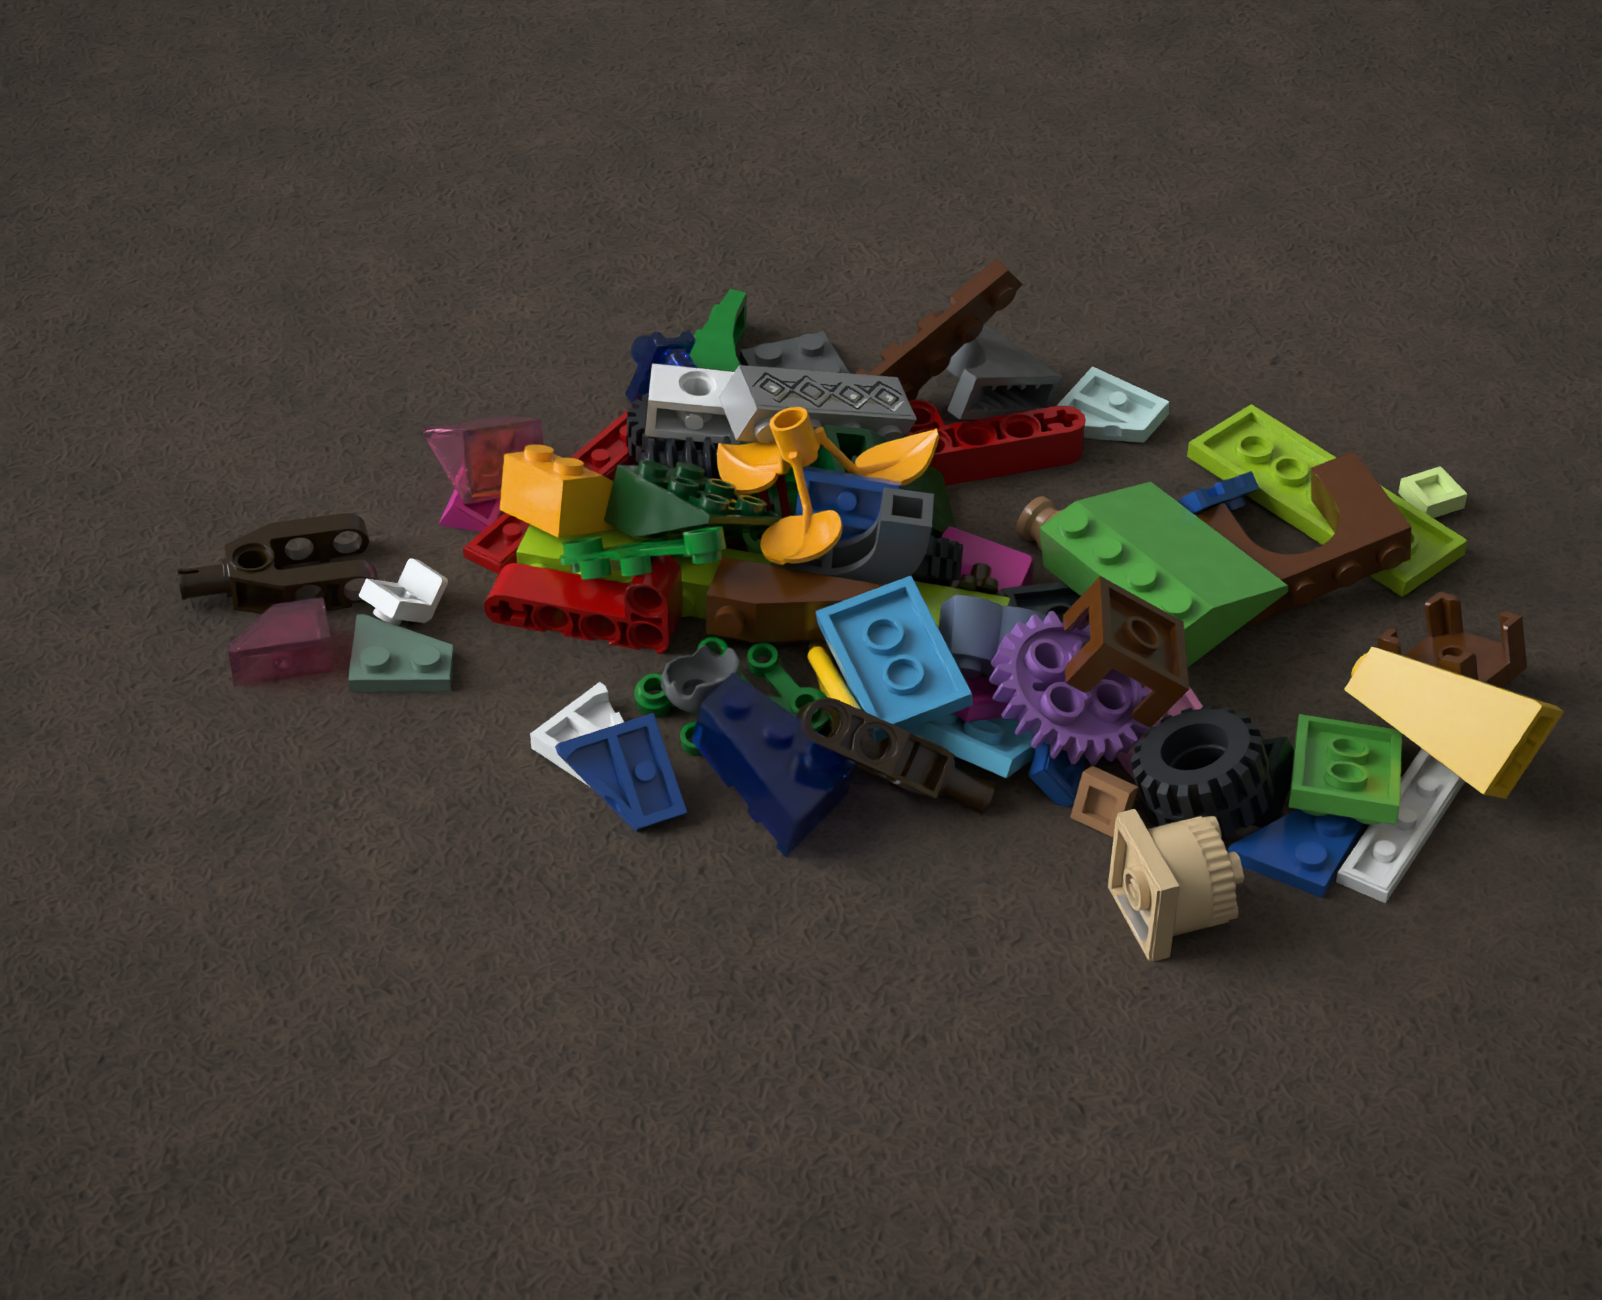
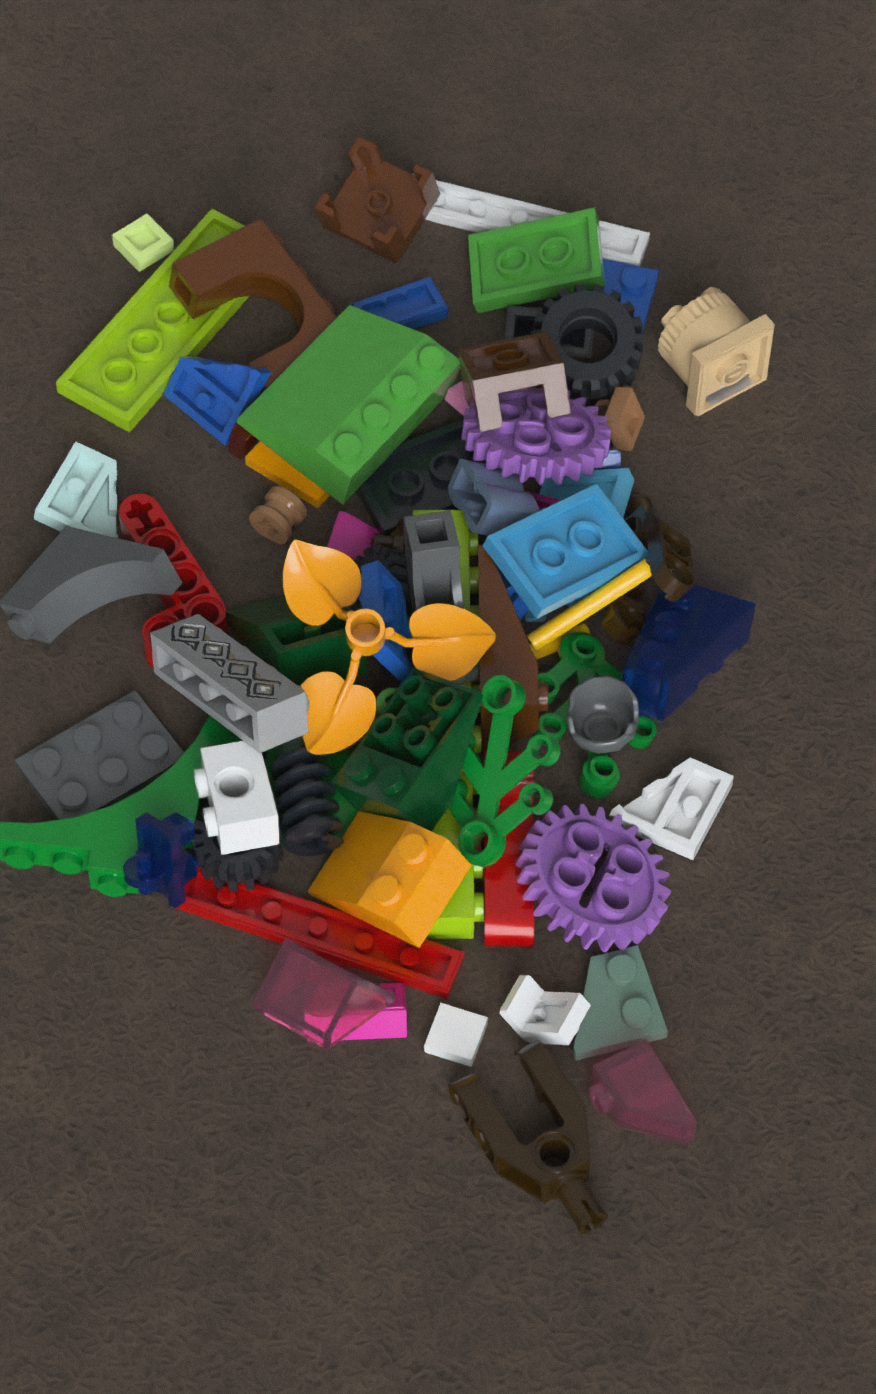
camera: 105 degrees left, 15 degrees up
(421, 544) = (456, 1034): none -> white tile
(499, 679) = (560, 863): none -> medium lavender gear
(628, 771) = (724, 751): blue wing -> none
(946, 331) = (88, 618): reddish brown wing -> none
(1304, 662) = (408, 305): none -> blue plate
(1462, 722) = (476, 182): yellow slope -> none

